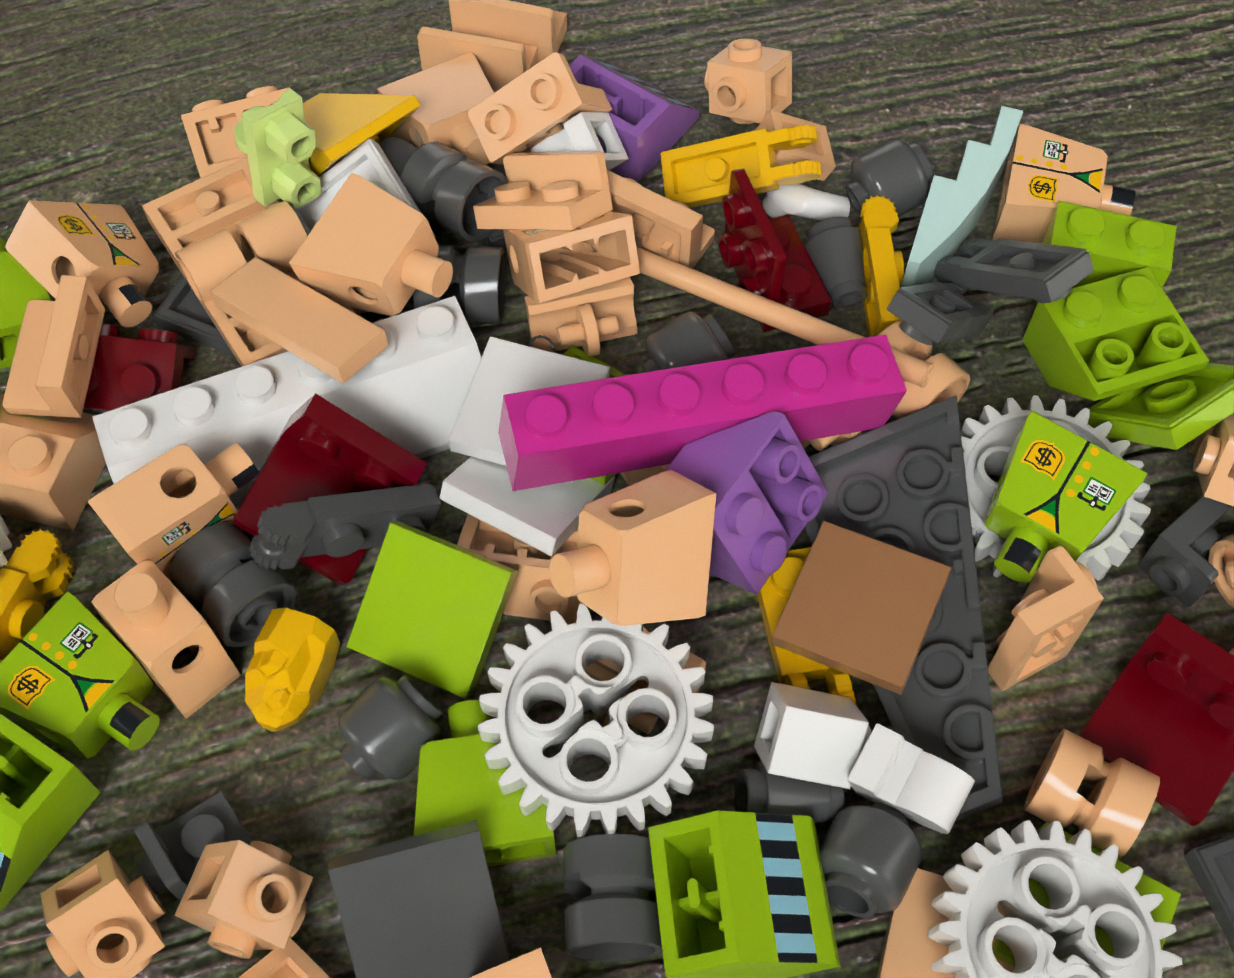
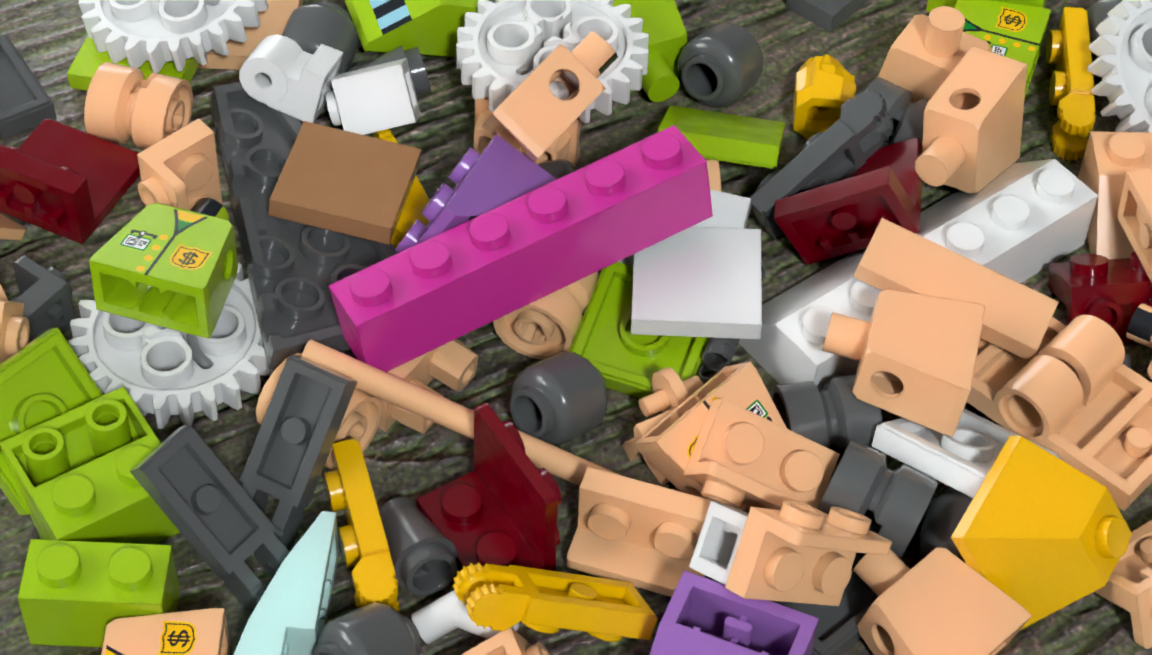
camera: 165 degrees right, 10 degrees down
(279, 151) = (1067, 424): yellowish green hips -> none

